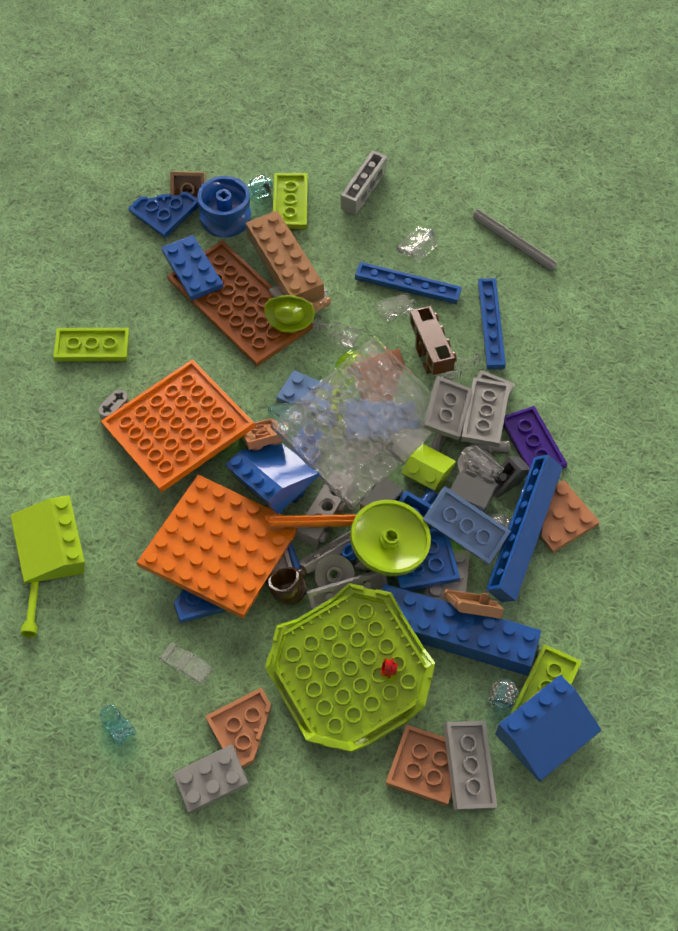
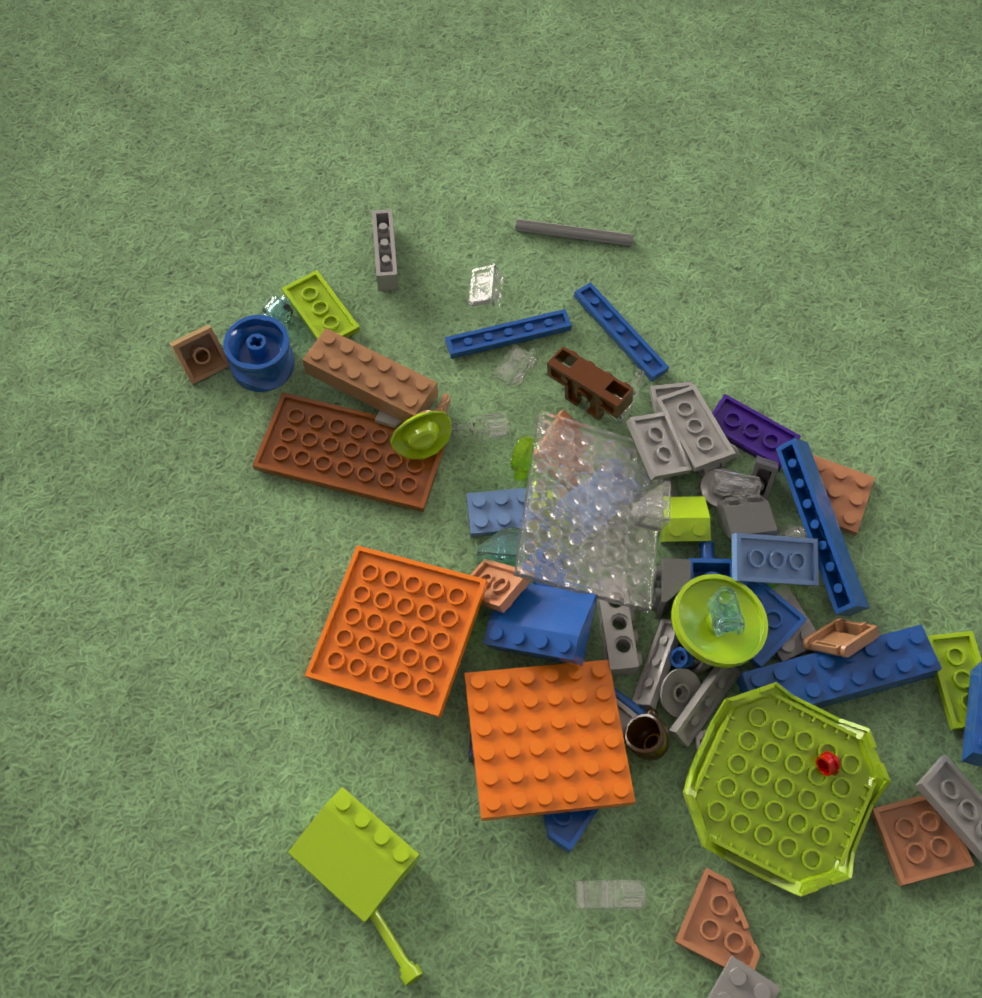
camera: 35 degrees left, 5 degrees up
(91, 344) = (225, 592): lime plate -> none
(112, 404) = (297, 647): light grey beam -> none
(164, 211) = (192, 394): blue plate -> none
(192, 267) = (274, 441): blue plate -> none
(311, 521) = (627, 647): orange axle -> none
(392, 532) = (727, 616): none -> clear light blue piece
(503, 695) = (934, 714): clear light blue head -> none

